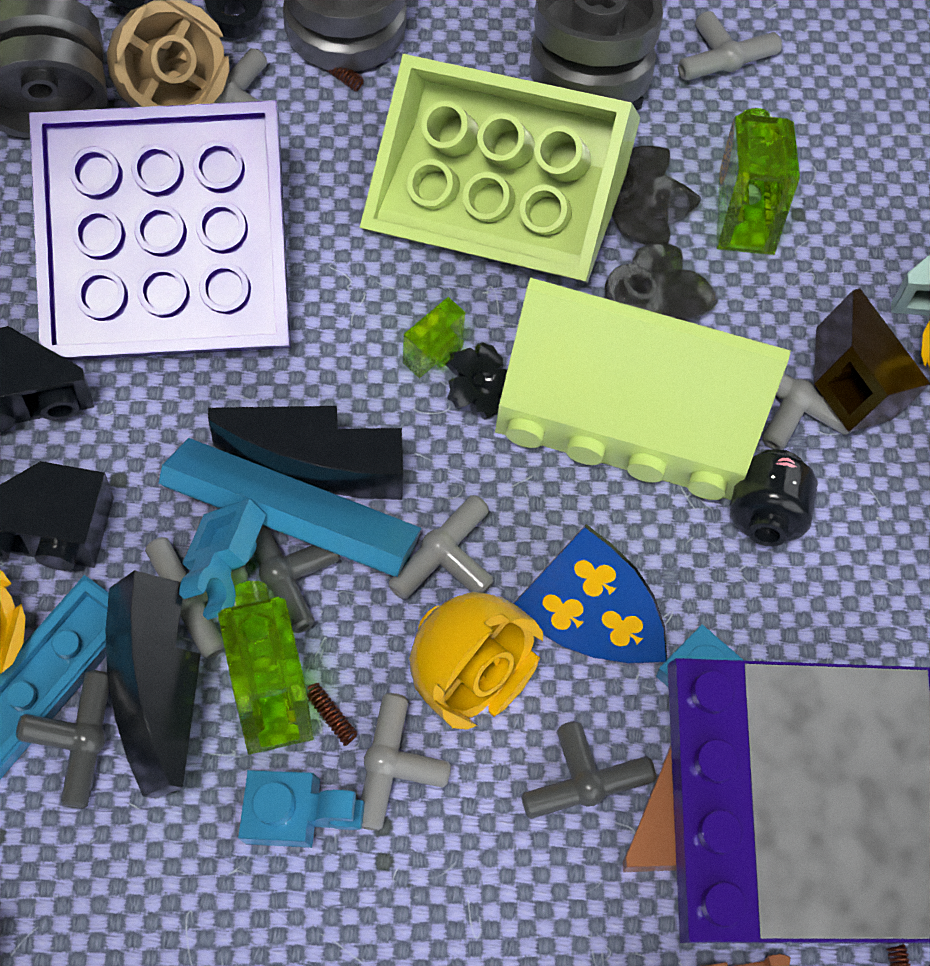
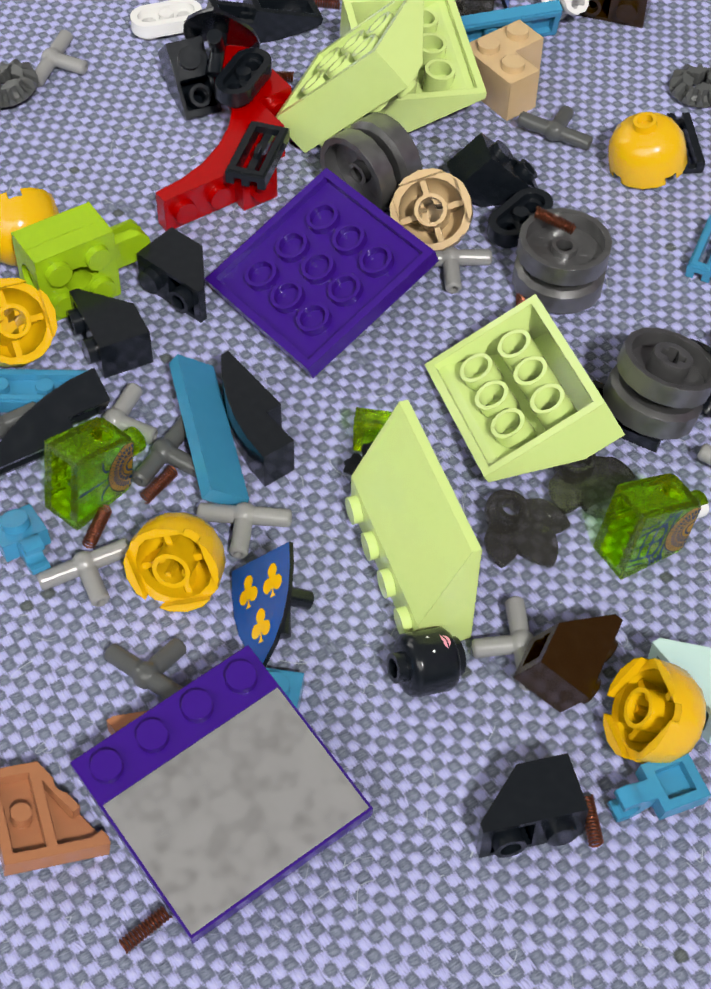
camera: 60 degrees right, 15 degrees down
(221, 545) = (153, 410): dark azure plate -> none
(321, 621) = (170, 472): none -> copper leg

